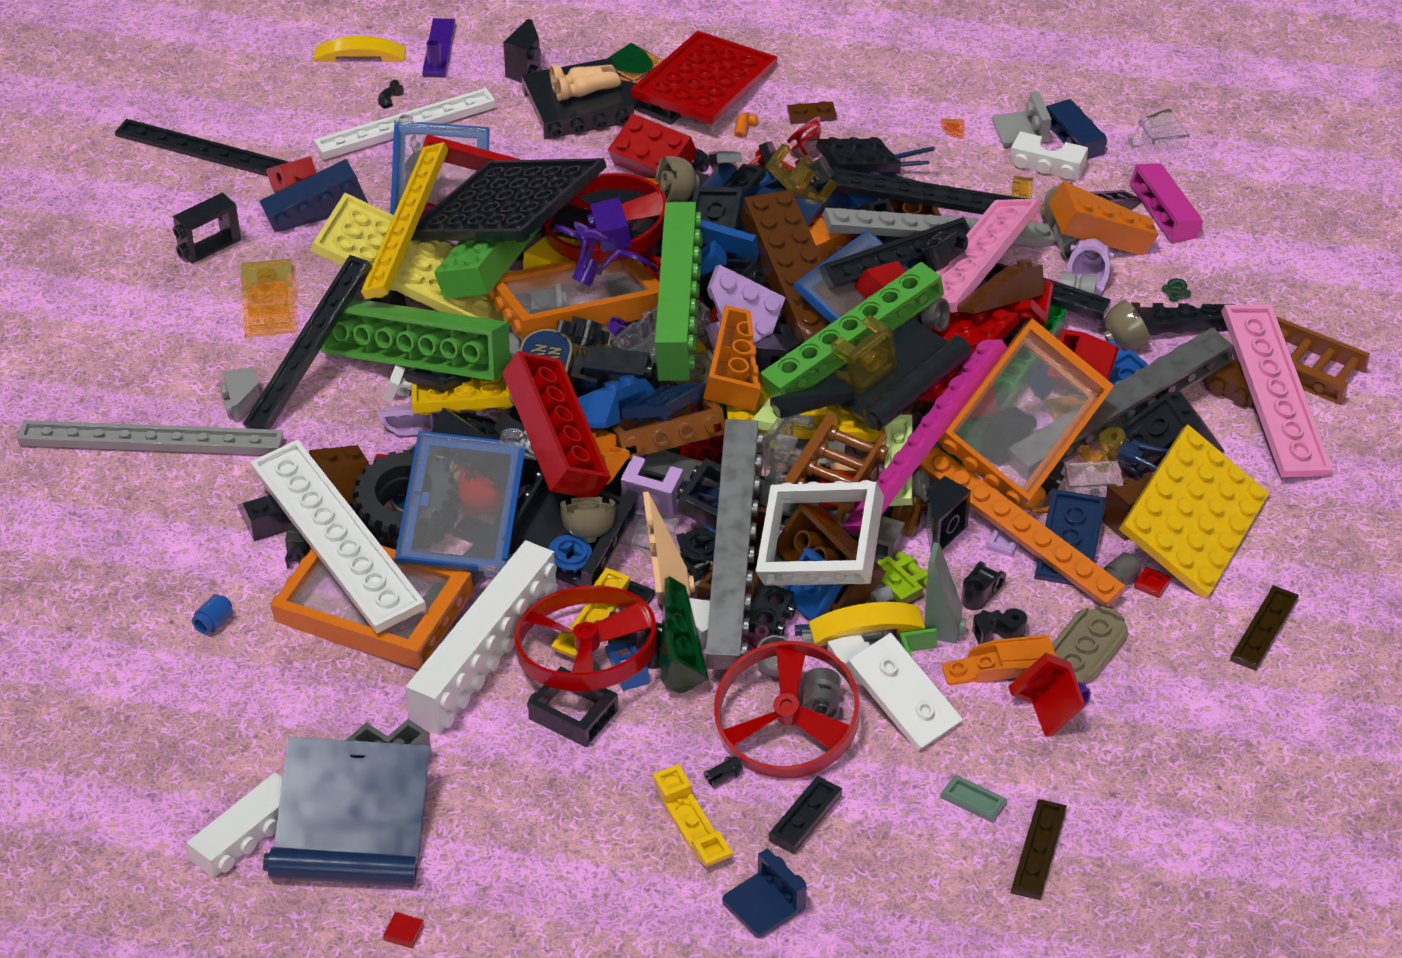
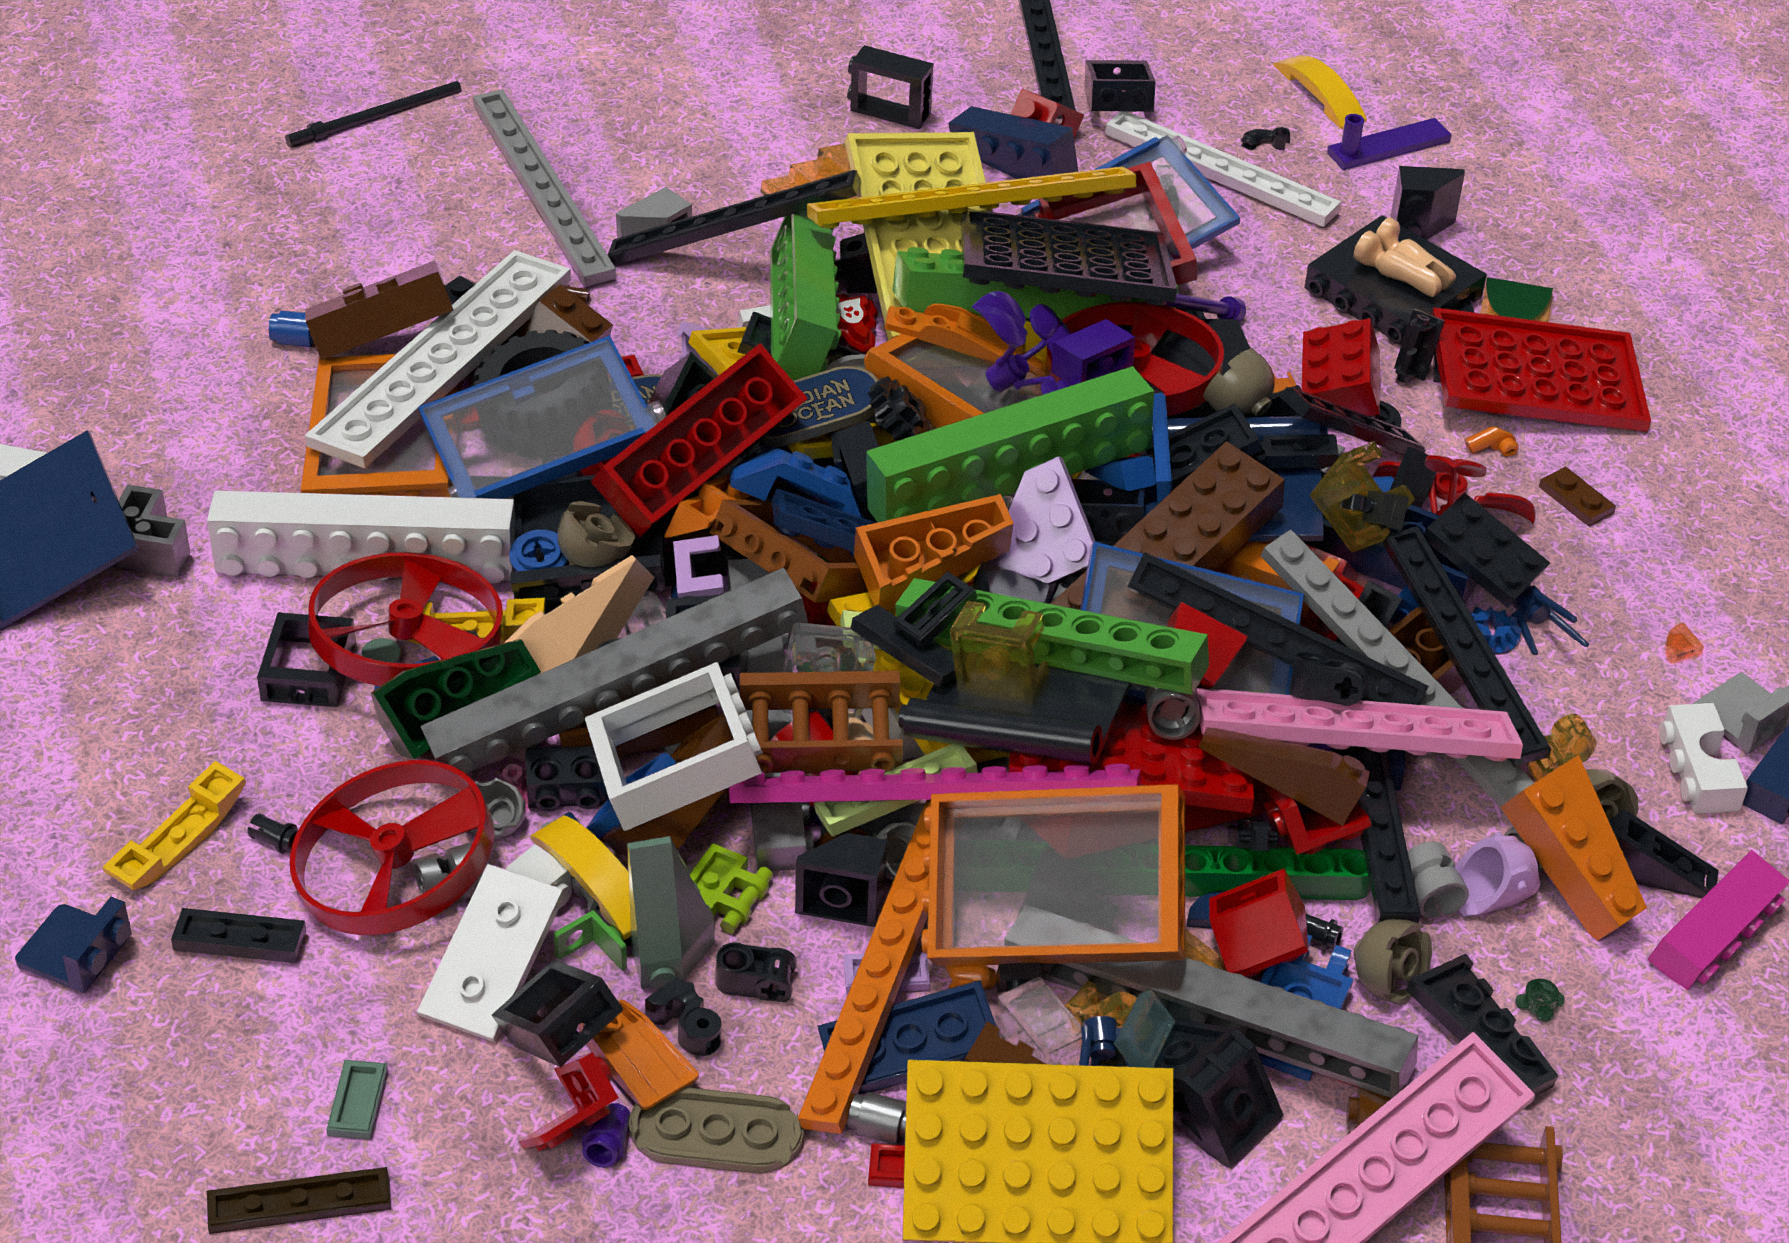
camera: 60 degrees right, 0 degrees up
(262, 549) = (377, 309): none -> reddish brown brick
(308, 121) = (1124, 92): none -> black window
(522, 280) = (950, 328): none -> orange piece
(652, 105) = (1418, 346): none -> black hinge
(810, 387) = (939, 612): none -> black tile
(993, 690) = (568, 999): none -> black window
(1142, 431) = (1144, 1031): none -> clear light blue tile

